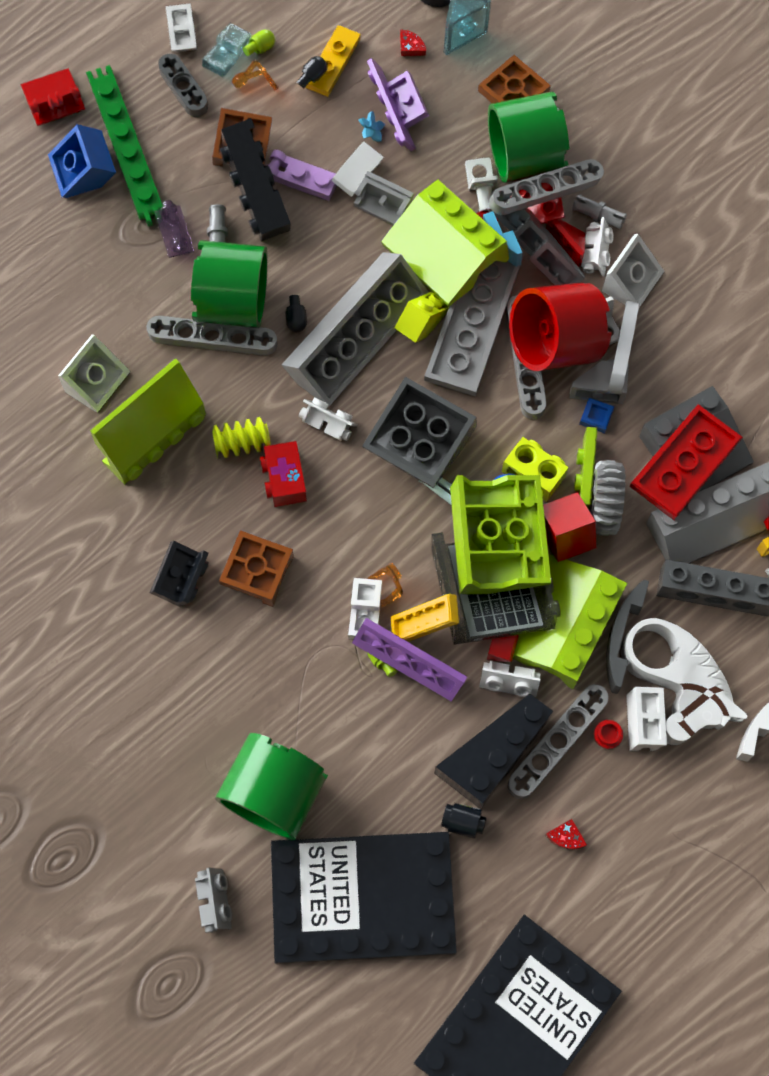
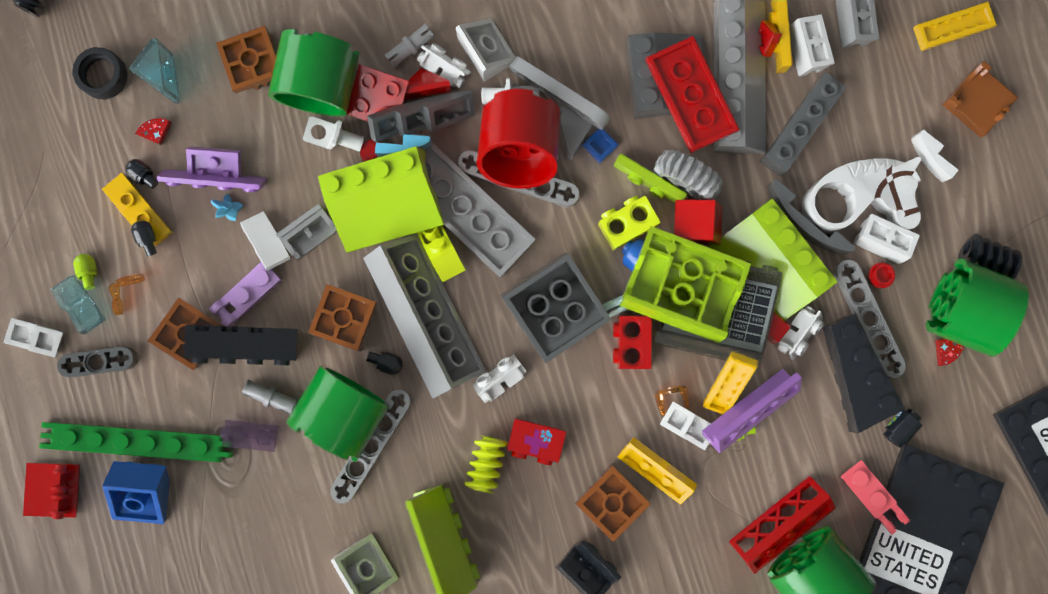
camera: 65 degrees left, 15 degrees up
(307, 597) = (657, 470): none -> yellow plate
(319, 259) = (342, 317): none -> dark orange piece
(332, 757) = (789, 531): none -> red fence
(367, 49) = (140, 173): none -> black cylinder
(380, 818) = (872, 494): none -> coral hinge
(424, 526) = (640, 342): none -> red brick
(538, 194) = (375, 94): light grey beam -> none
(621, 826) = (977, 308): none -> green brick
(682, 833) = (992, 255): none -> black piece

